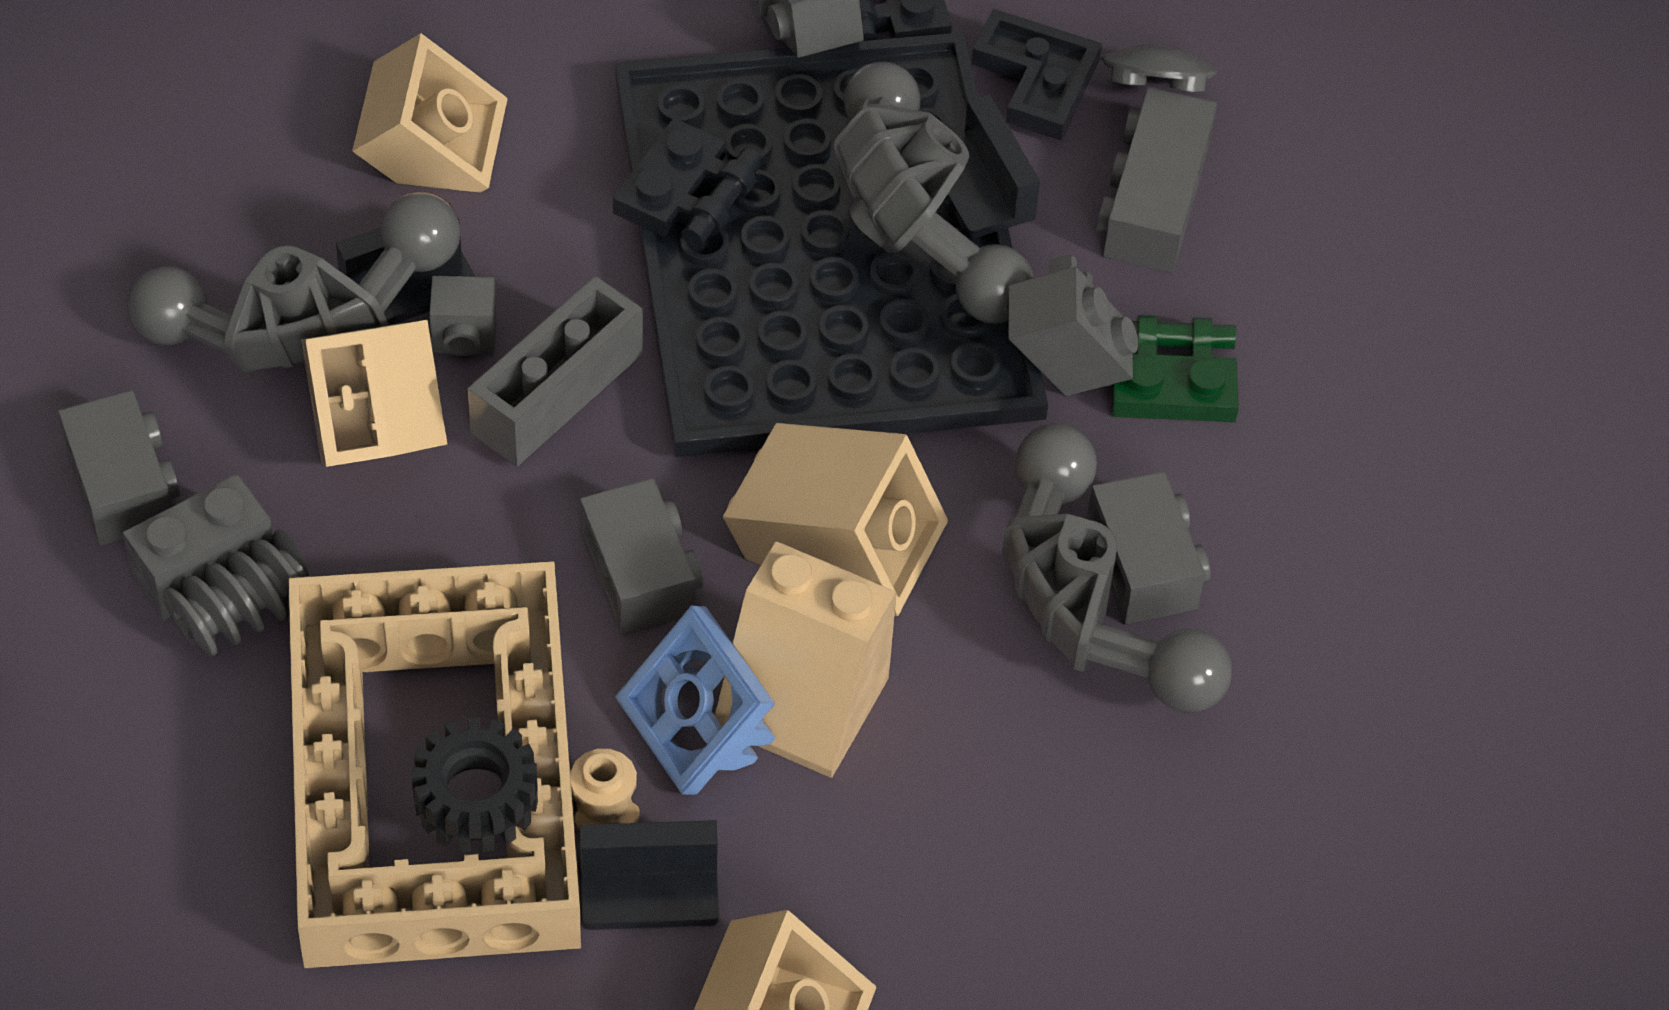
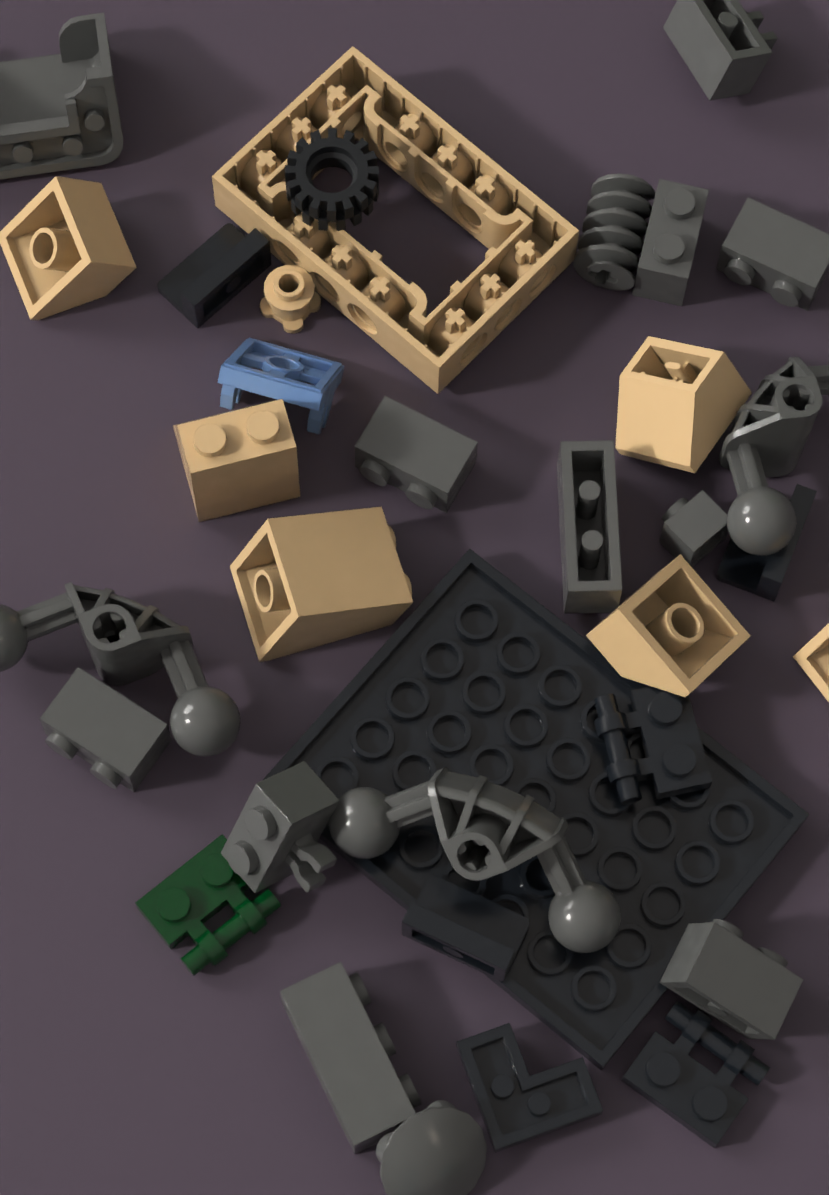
camera: 140 degrees right, 15 degrees up
(583, 231) = (669, 631): none -> tan slope

